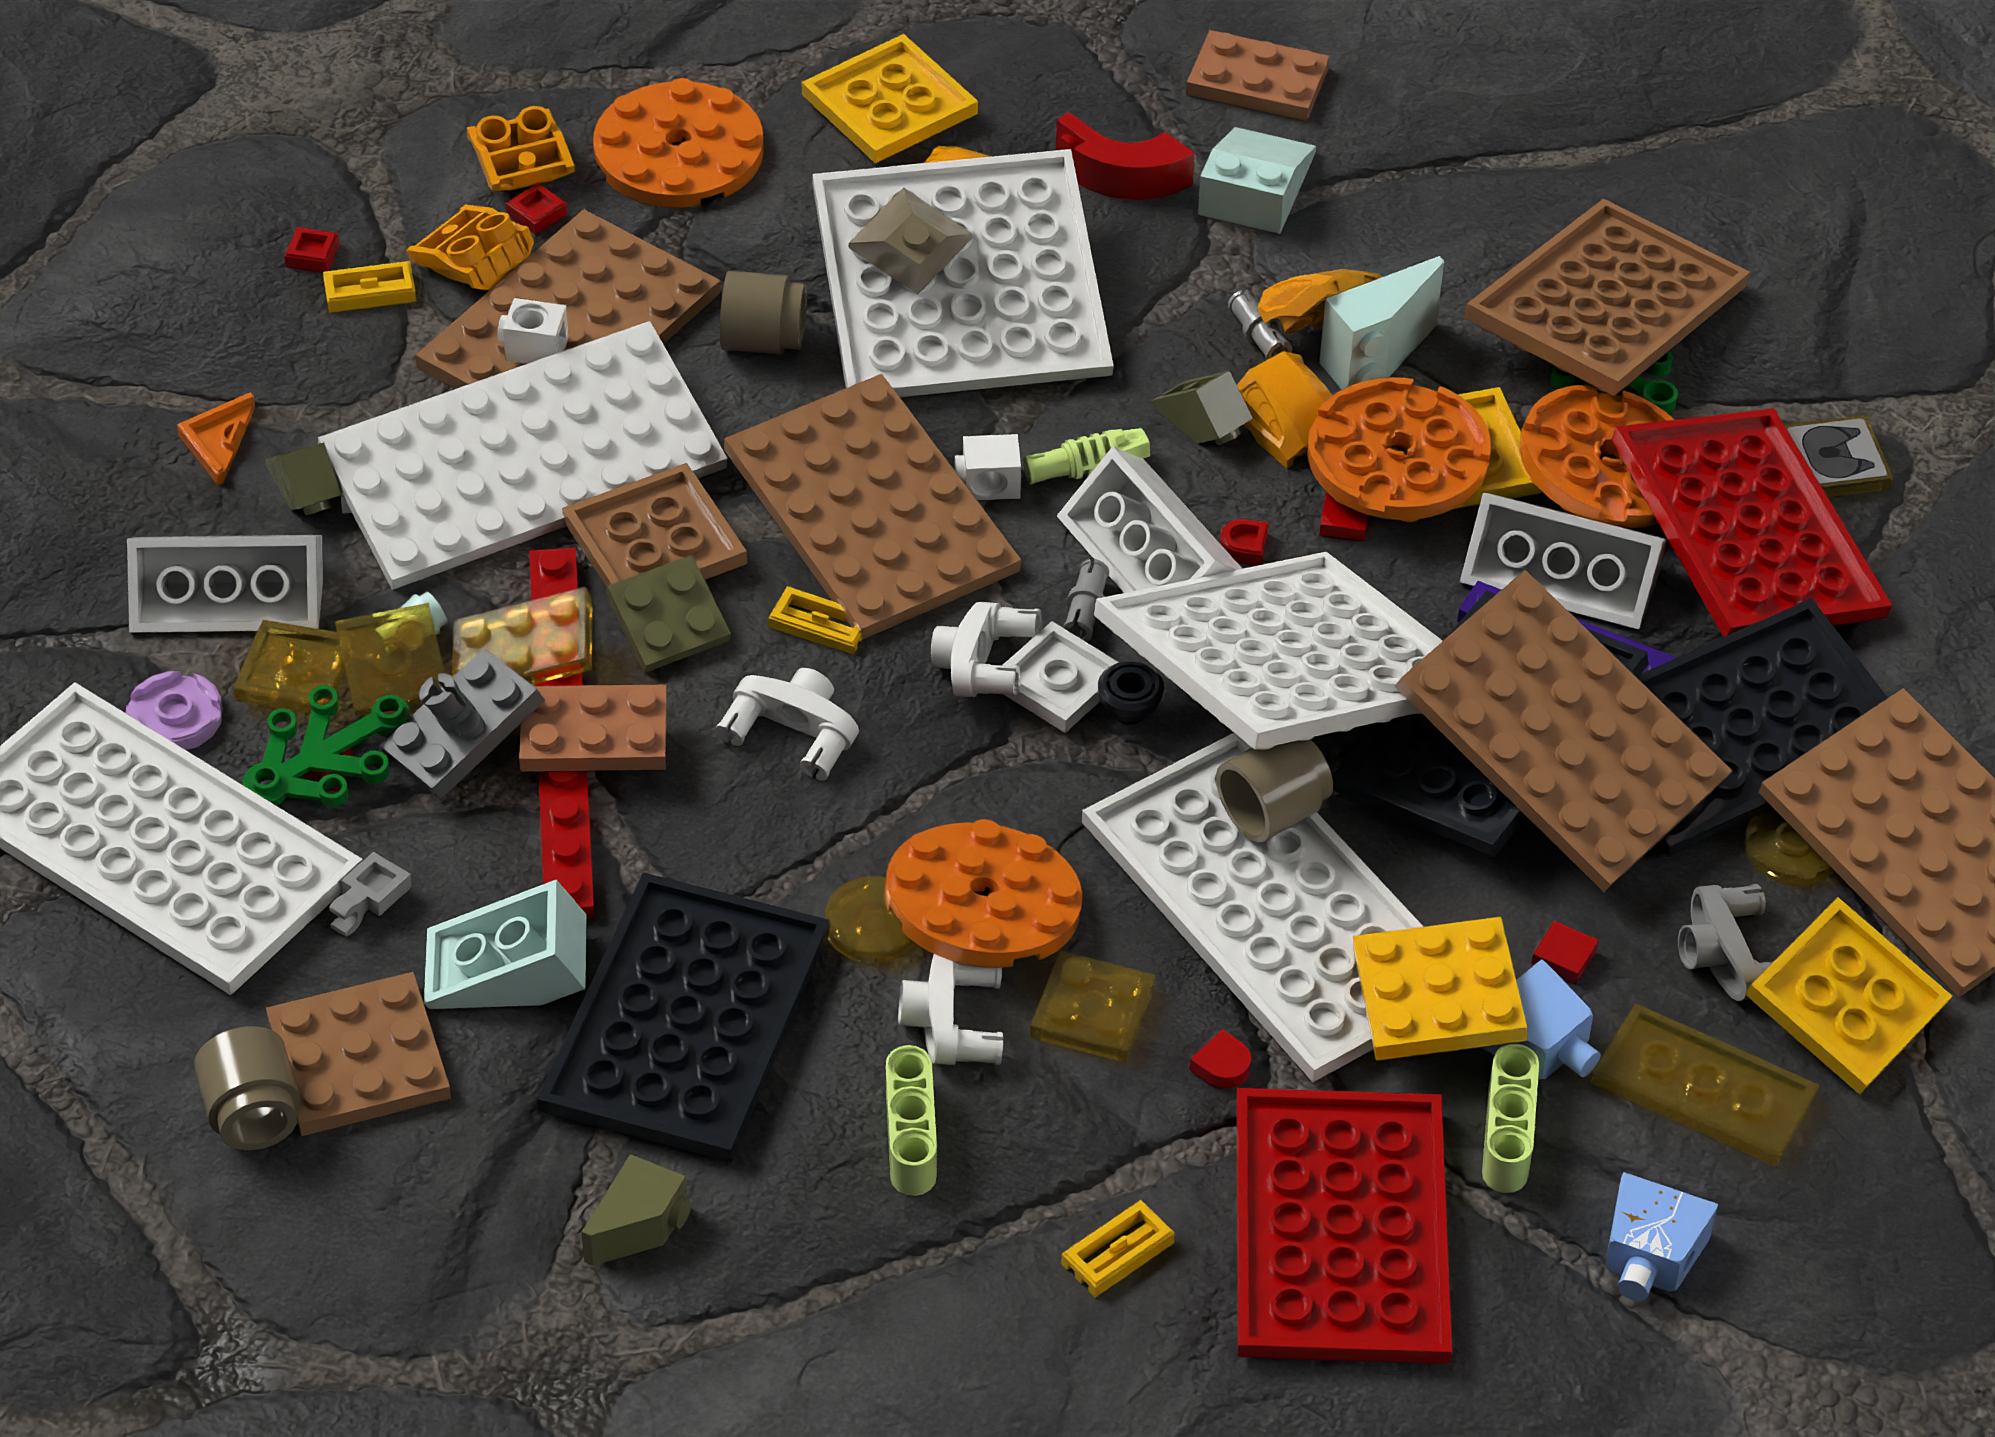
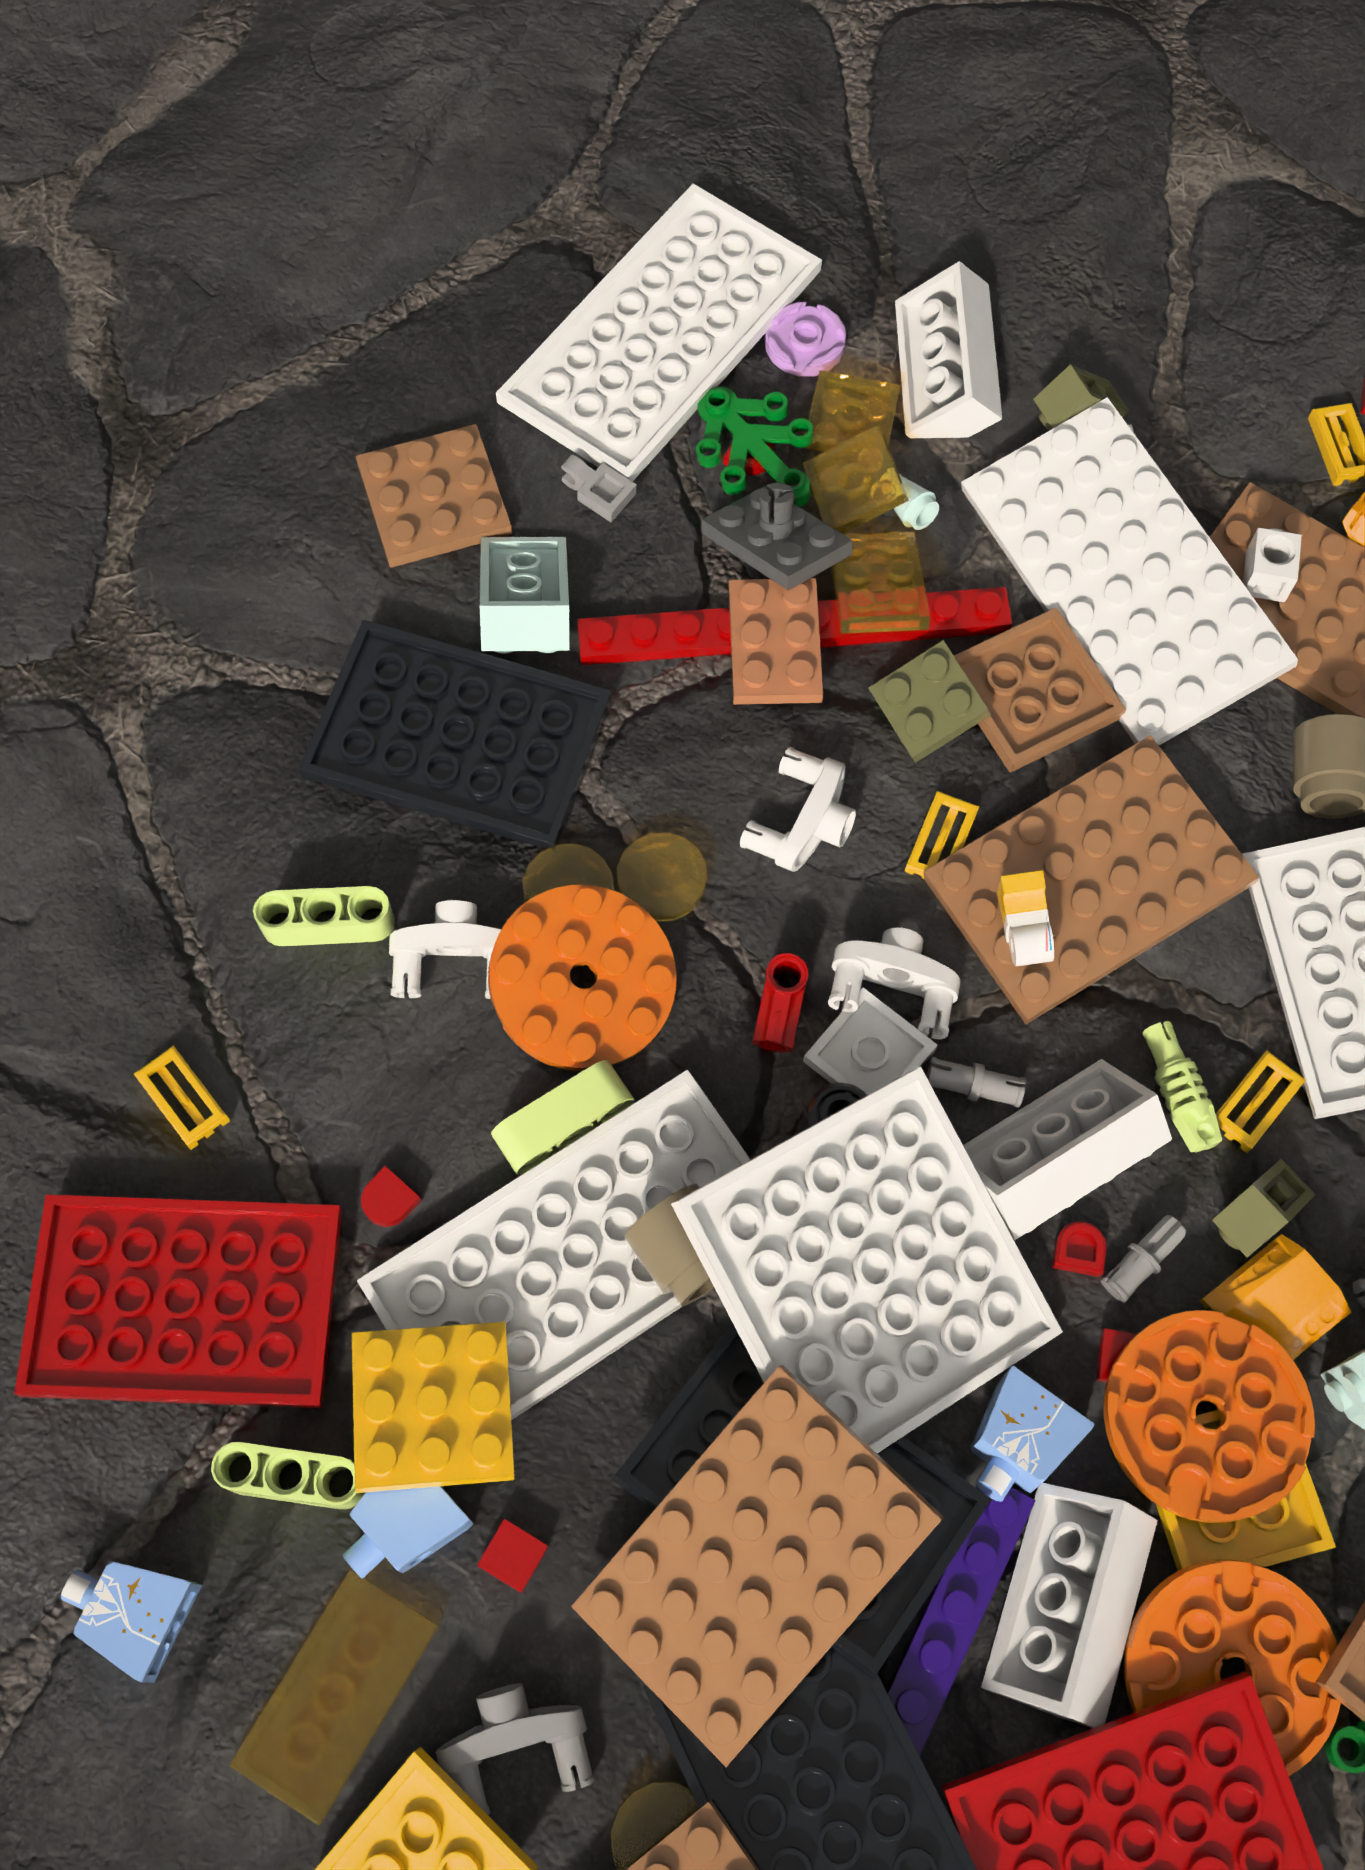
camera: 90 degrees right, 20 degrees up
(217, 435) = (1134, 341): orange tile -> none
(248, 1087) = (375, 409): dark tan piece -> none
(636, 1212) = (246, 700): olive slope -> none
(858, 838) = (663, 875): none -> clear yellow tile
(929, 536) = (1026, 918): none -> leg
(990, 466) = (1151, 989): white brick -> none
(993, 737) = (780, 1006): none -> red piece
(1091, 415) = (1234, 1130): none -> yellow tile
(1092, 1006) = (460, 1081): clear yellow plate -> none
(1134, 913) = (561, 1116): none -> yellowish green beam
(1253, 493) = (1144, 1258): none -> light grey axle
(1425, 575) = (1024, 1435): none -> light blue torso

